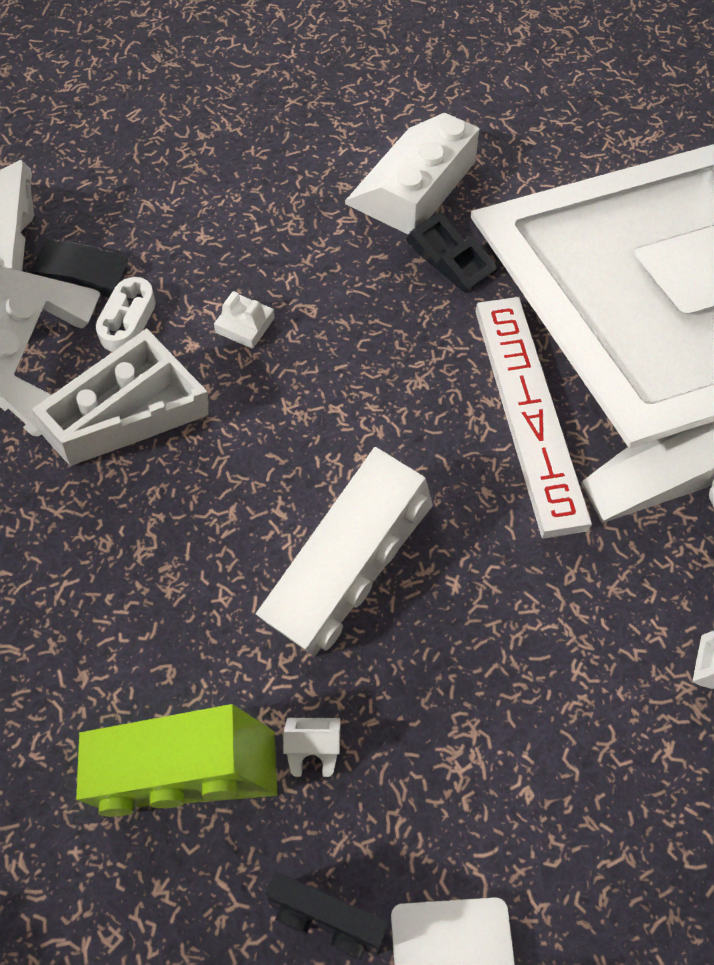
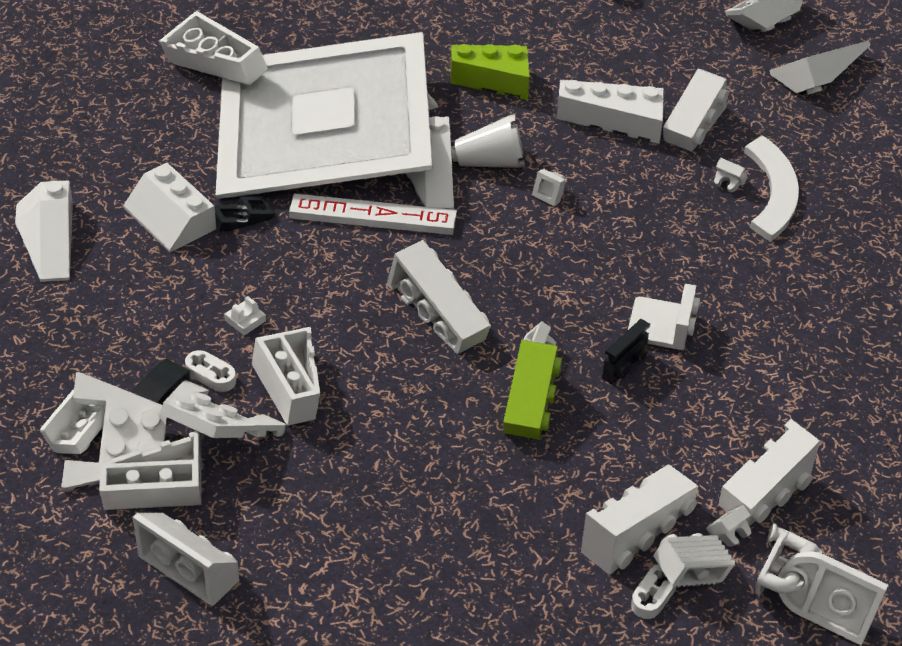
camera: 75 degrees left, 15 degrees down
(337, 71) = (46, 228): none -> white wedge

